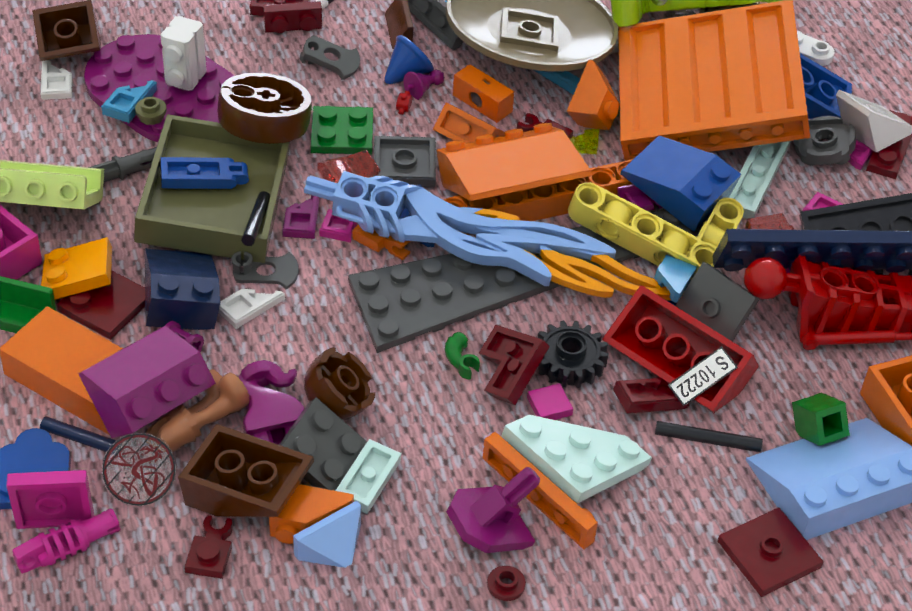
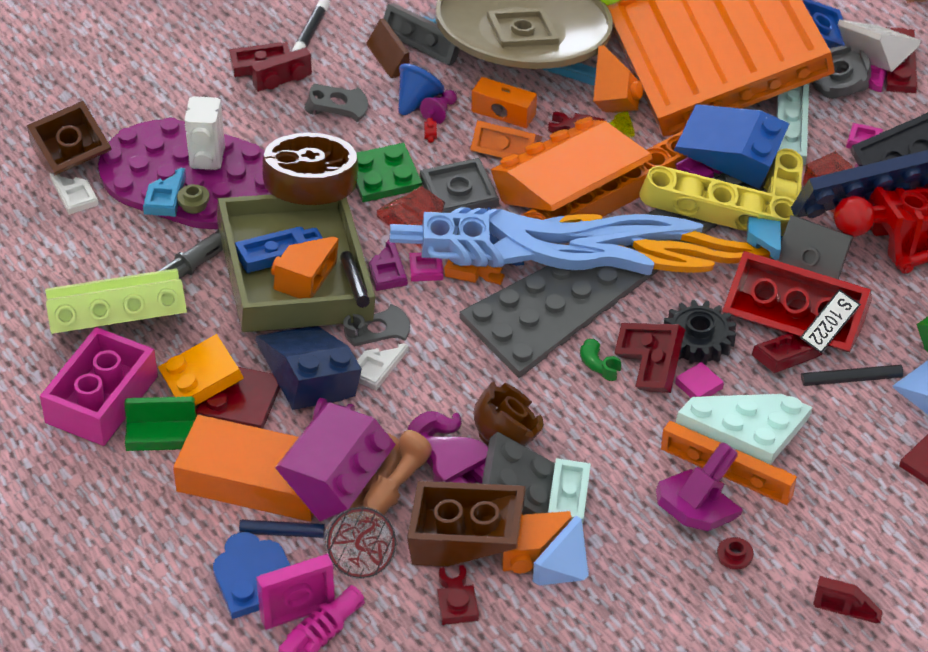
camera: 15 degrees left, 0 degrees up
(217, 195) = (304, 267): none -> orange slope

